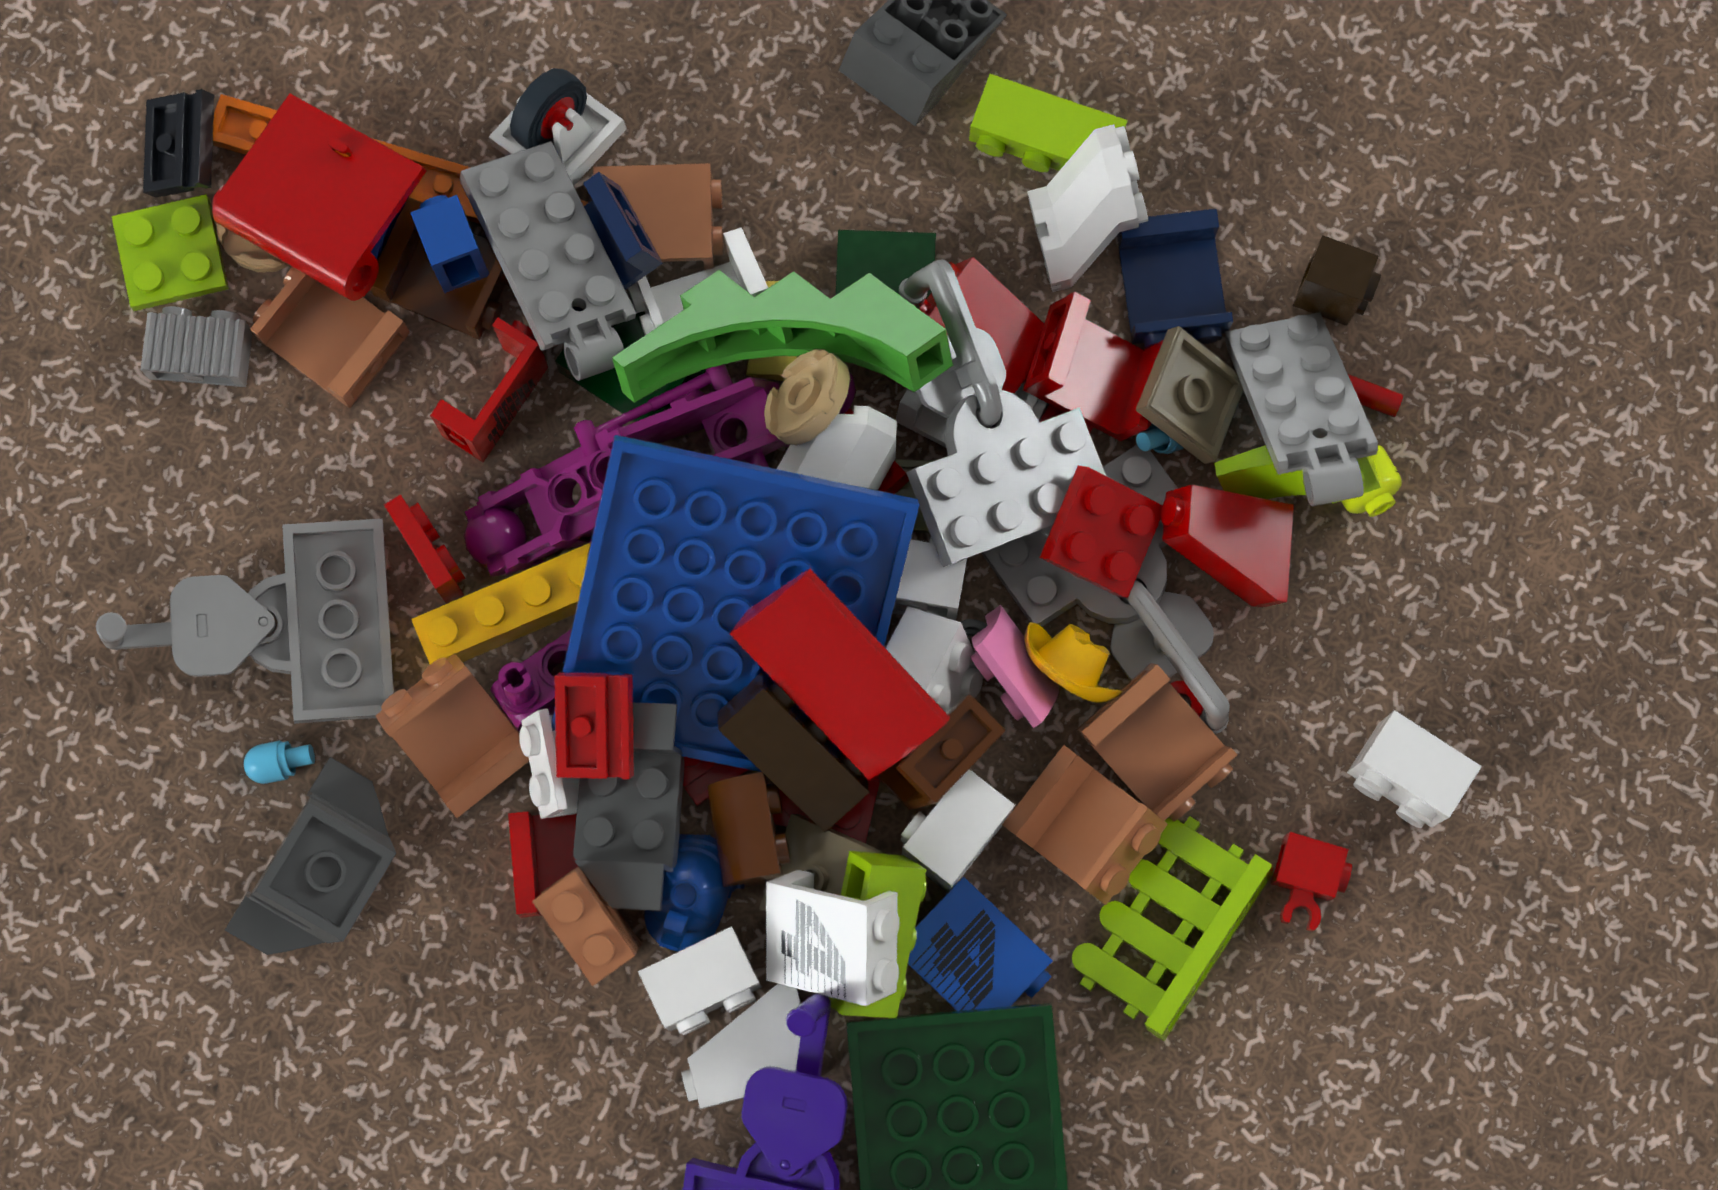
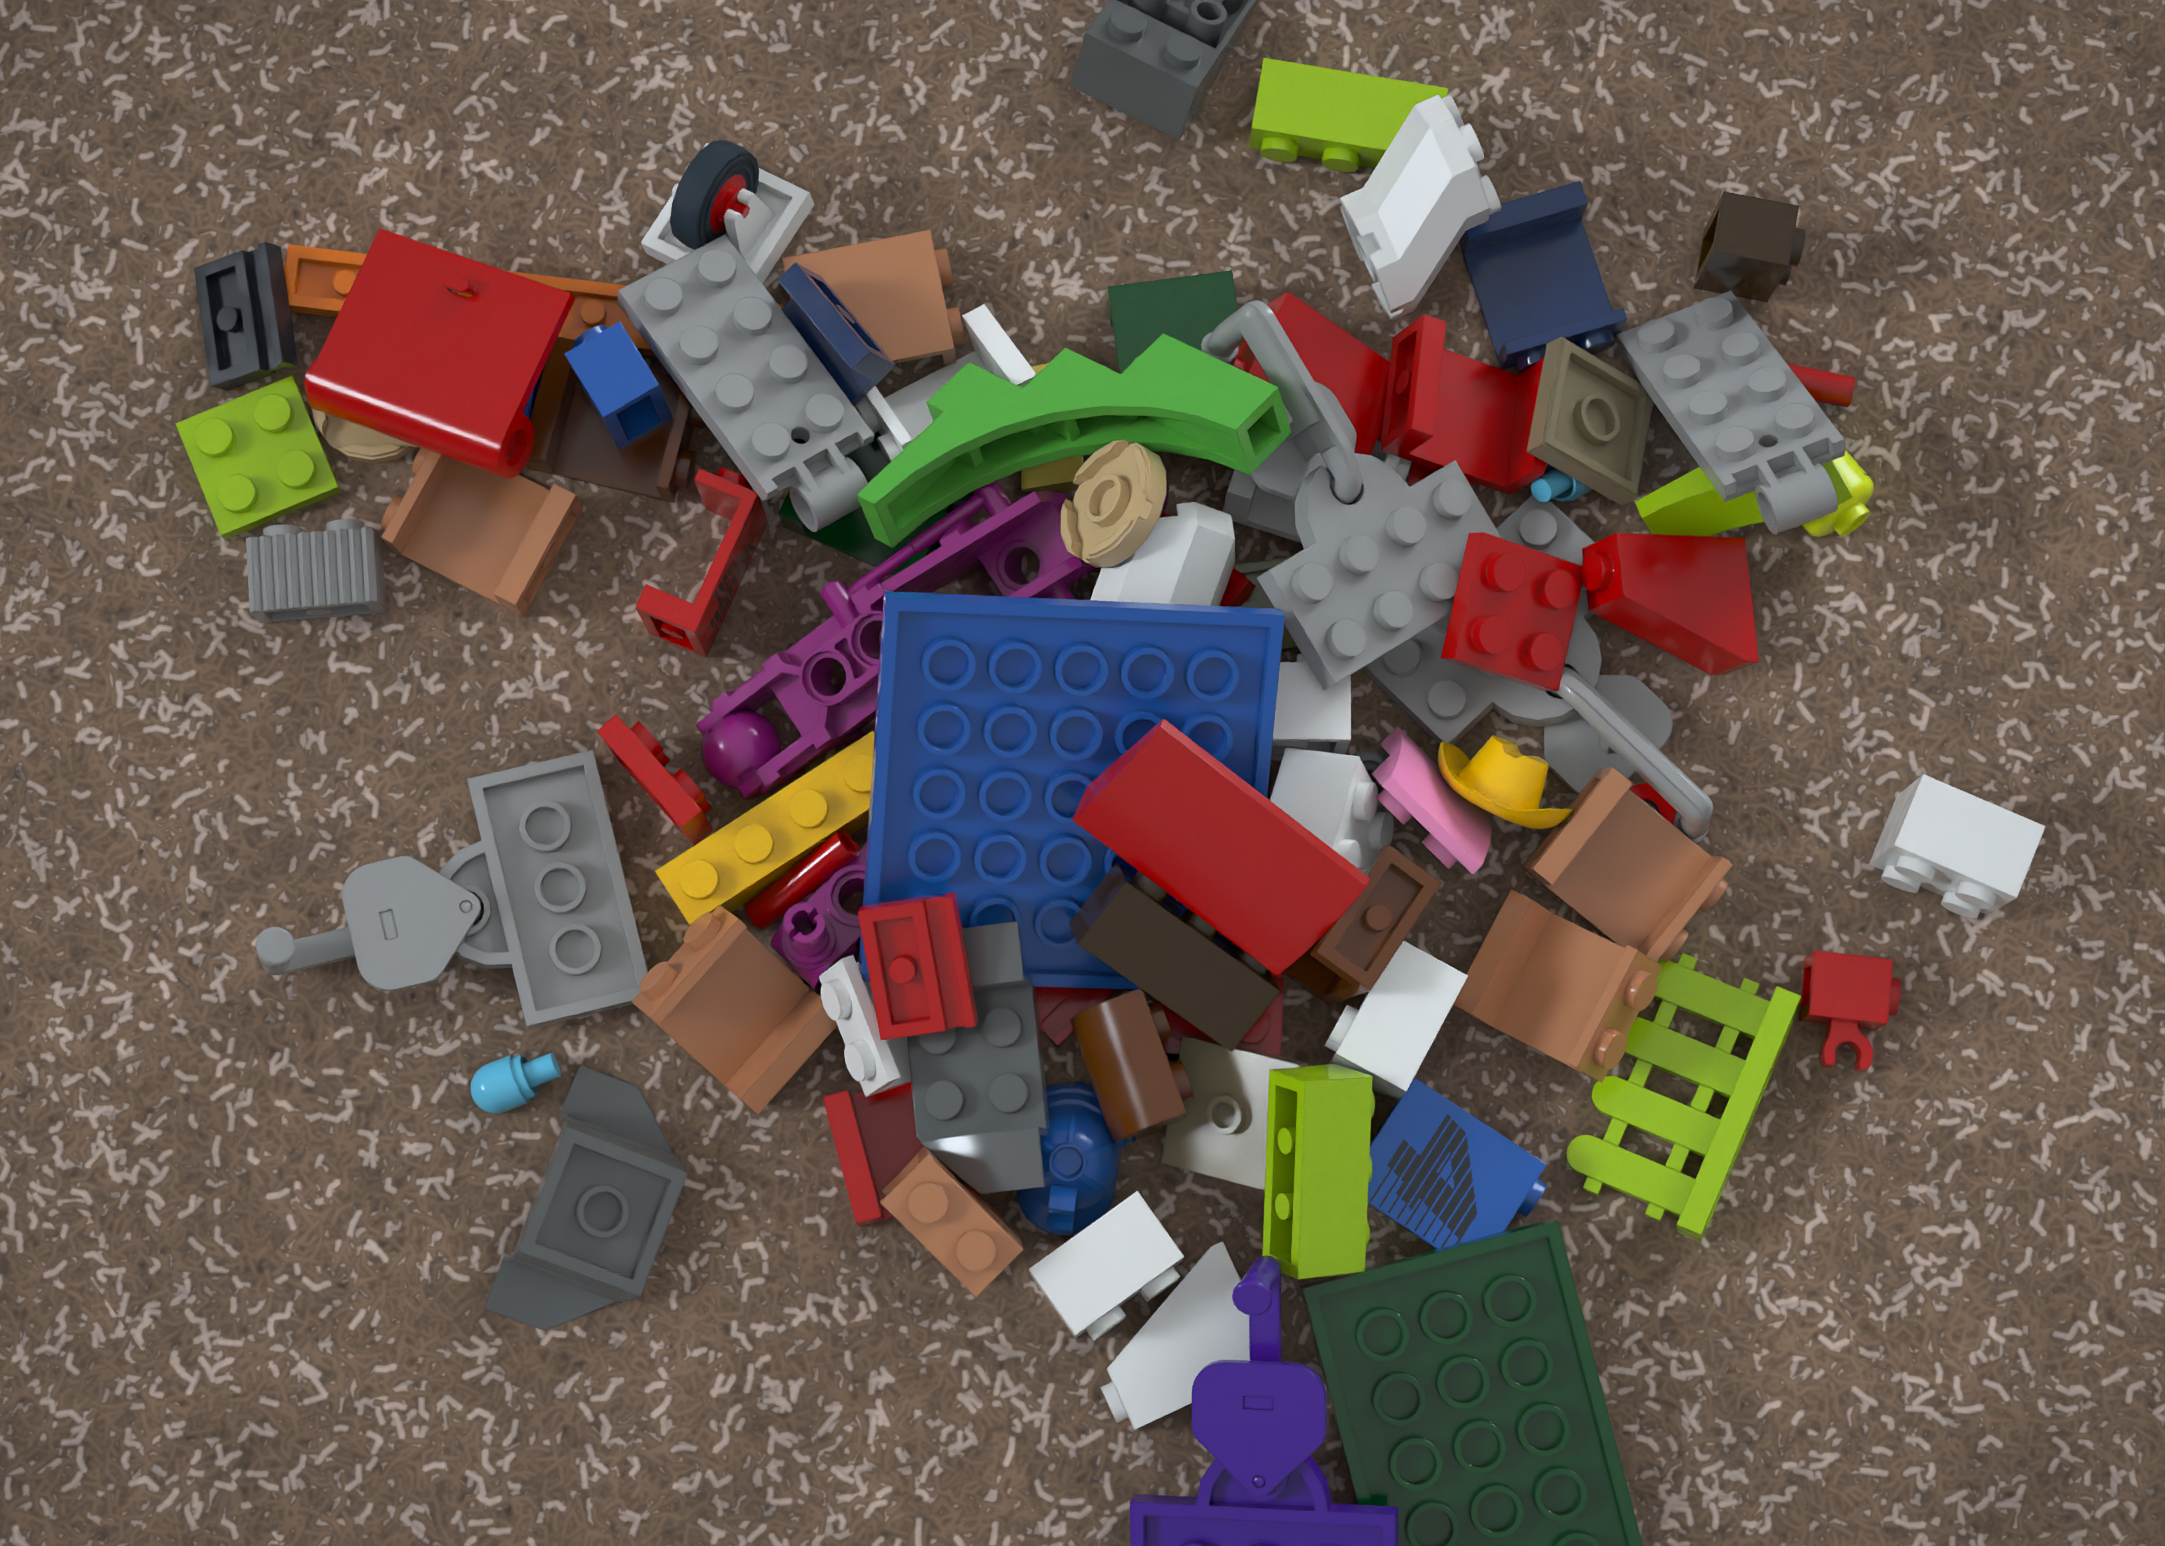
camera: 10 degrees left, 0 degrees up
(523, 644) = (802, 879): none -> red piece
(831, 940) = (1266, 1187): white panel -> none

